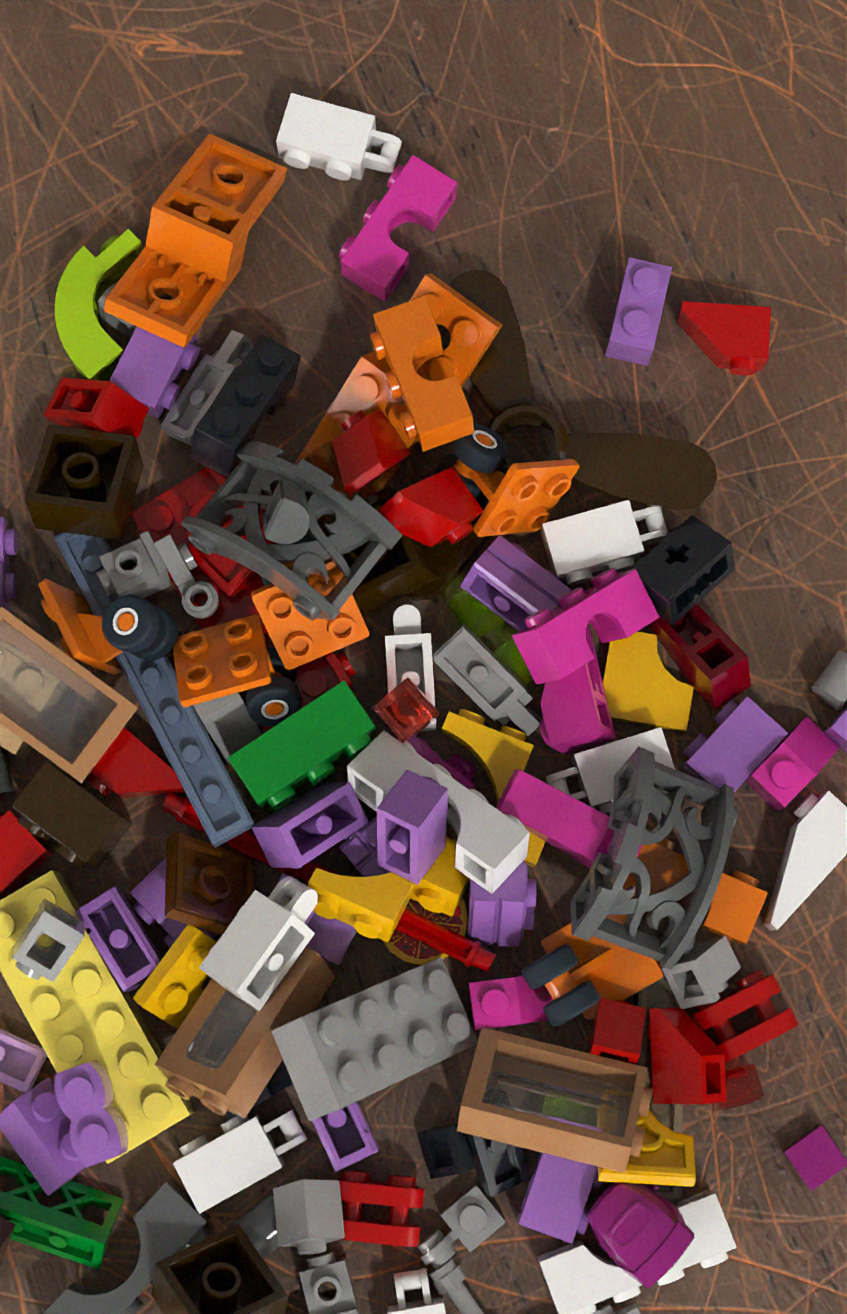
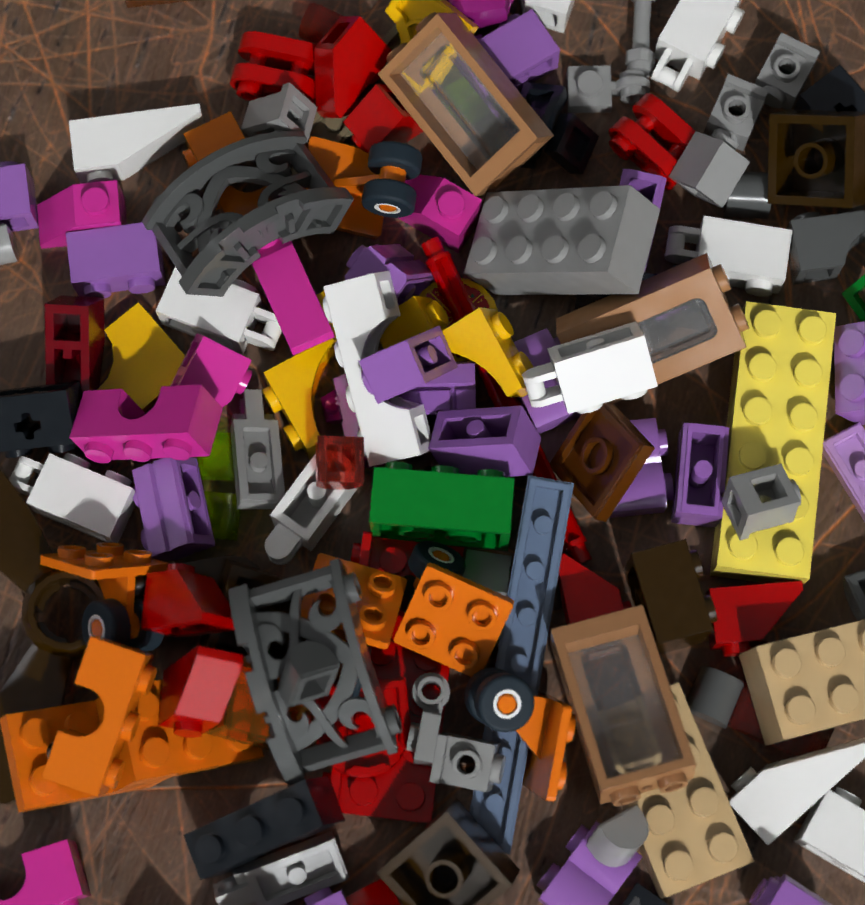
camera: 140 degrees left, 5 degrees down
(95, 1125) = (822, 346): medium lavender brick -> none
(177, 978) = (679, 403): yellow plate -> none

